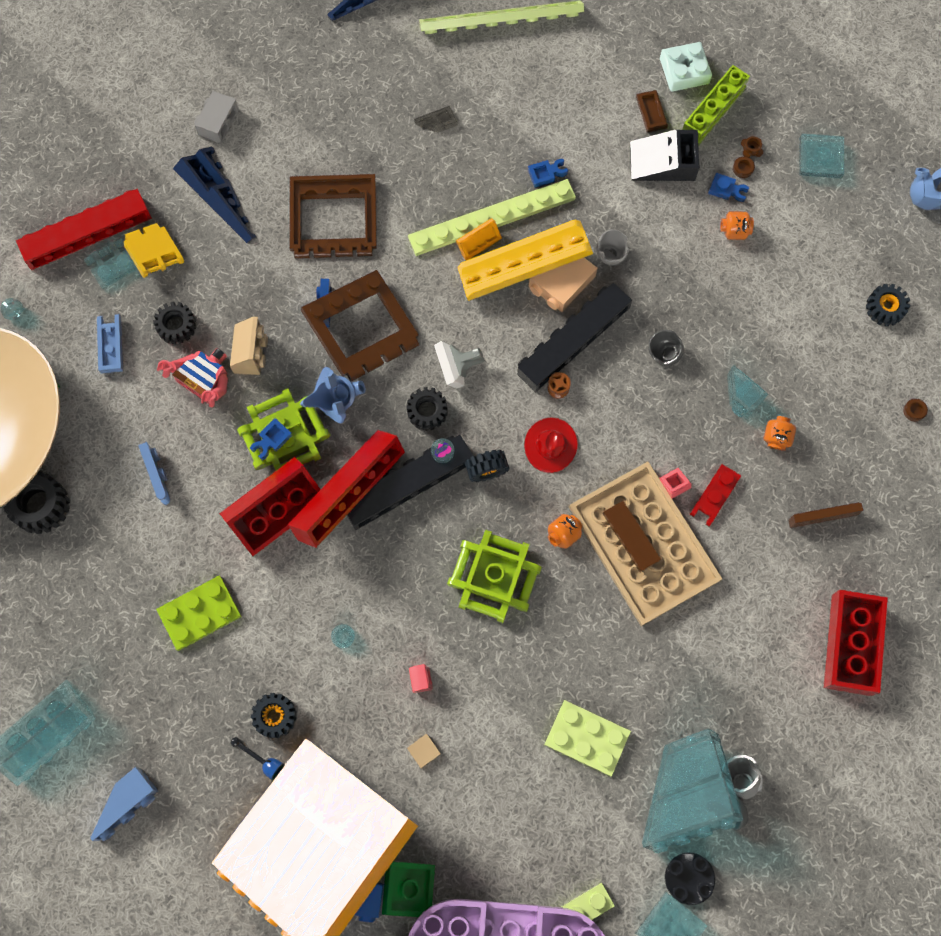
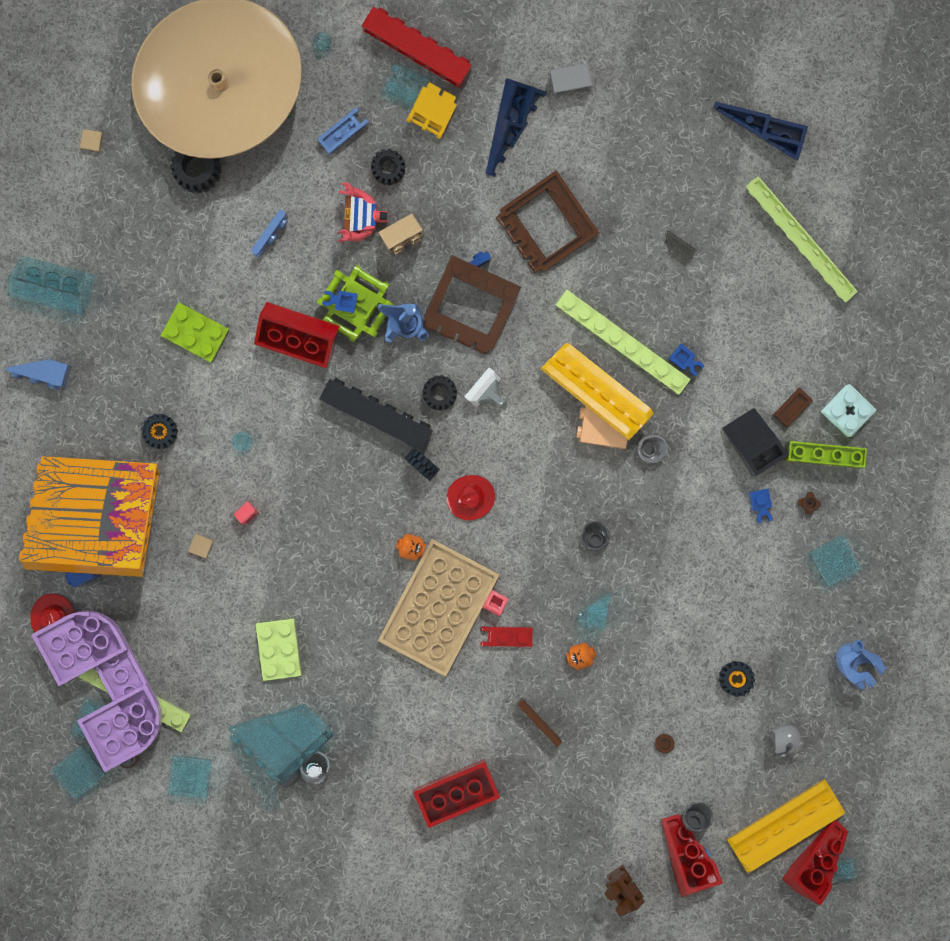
camera: 55 degrees right, 15 degrees up
(270, 767) = (125, 451): hinge -> none
(346, 488) = (340, 378): red brick -> none
(408, 889) = (106, 593): green plate -> none
(442, 450) = (411, 426): clear light blue tile -> none
(479, 239) = (596, 345): light orange plate -> none
(494, 575) = (348, 518): lime brick -> none
(559, 380) = (518, 473): dark orange wheel -> none
(574, 336) = (563, 464): black brick -> none
(631, 536) = (435, 596): reddish brown tile -> none
(690, 878) = (229, 770): black dish -> none
(737, 225) = (731, 530): orange head -> none
(743, 167) = (788, 506): reddish brown tile -> none

